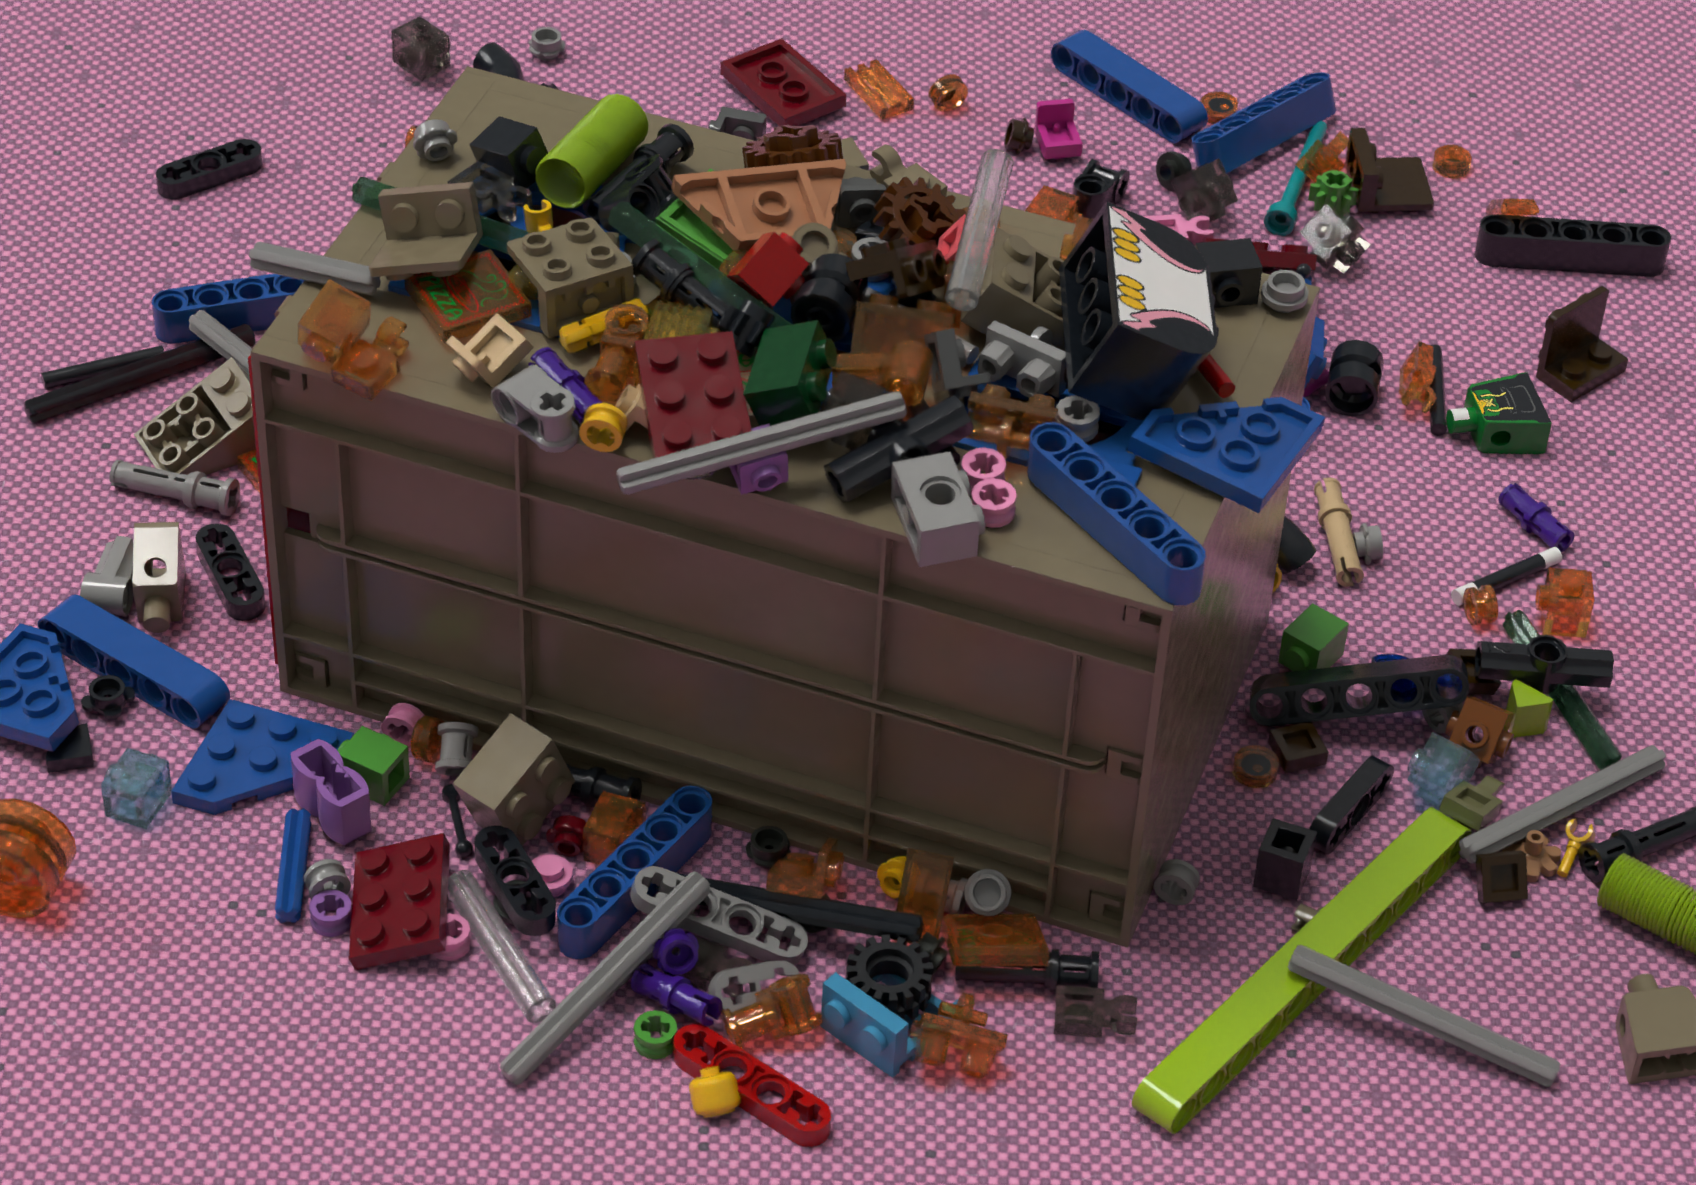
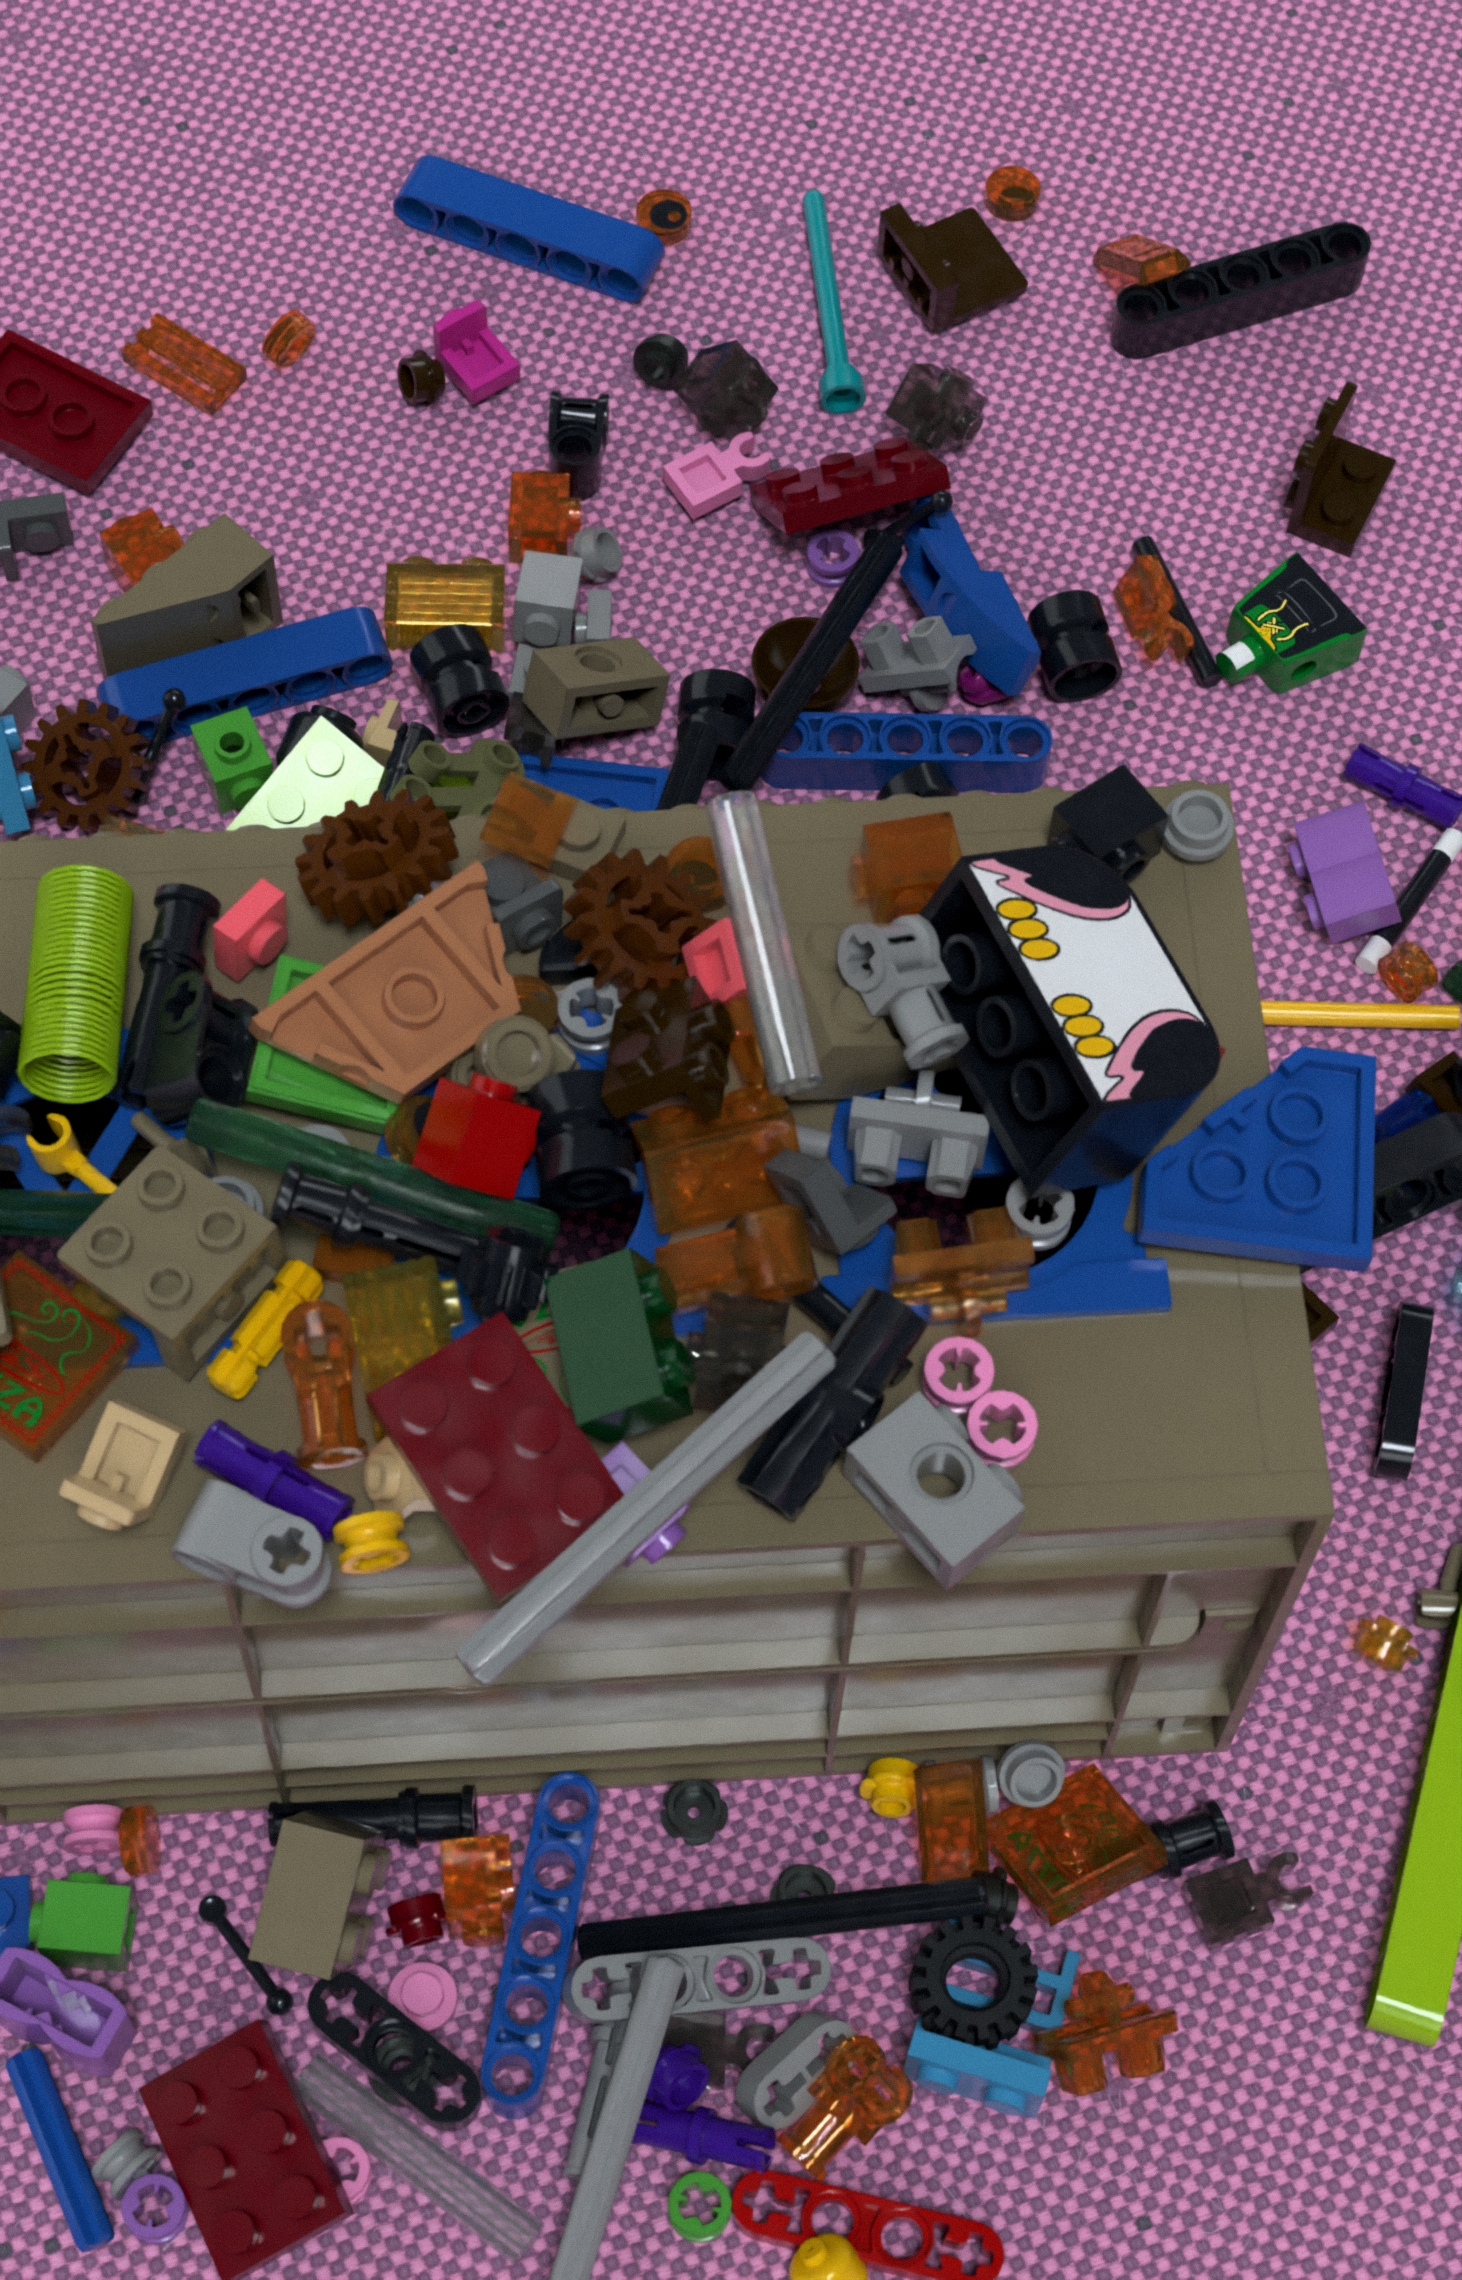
camera: 25 degrees left, 20 degrees up
(455, 747) = (192, 1846): light grey bush -> none
(703, 155) = (251, 931): none -> coral plate
(805, 878) = (779, 1854): clear orange bracket -> none
(887, 159) = (528, 819): none -> clear orange tile
(1050, 268) = (903, 984): none -> light grey connector
(1116, 513) = (1208, 1418): blue beam -> none
(1261, 921) = (1385, 1643): none -> clear yellow plate
(1266, 122) = (747, 233): blue beam -> none
(1284, 859) = (1375, 1533): black brick -> none
(1323, 158) = (848, 267): clear orange plate -> none
(1334, 190) = (893, 321): bright green gear -> none
(1418, 613) = (1361, 1014): none -> yellow bar
(1466, 541) = (1346, 873): none -> medium lavender brick

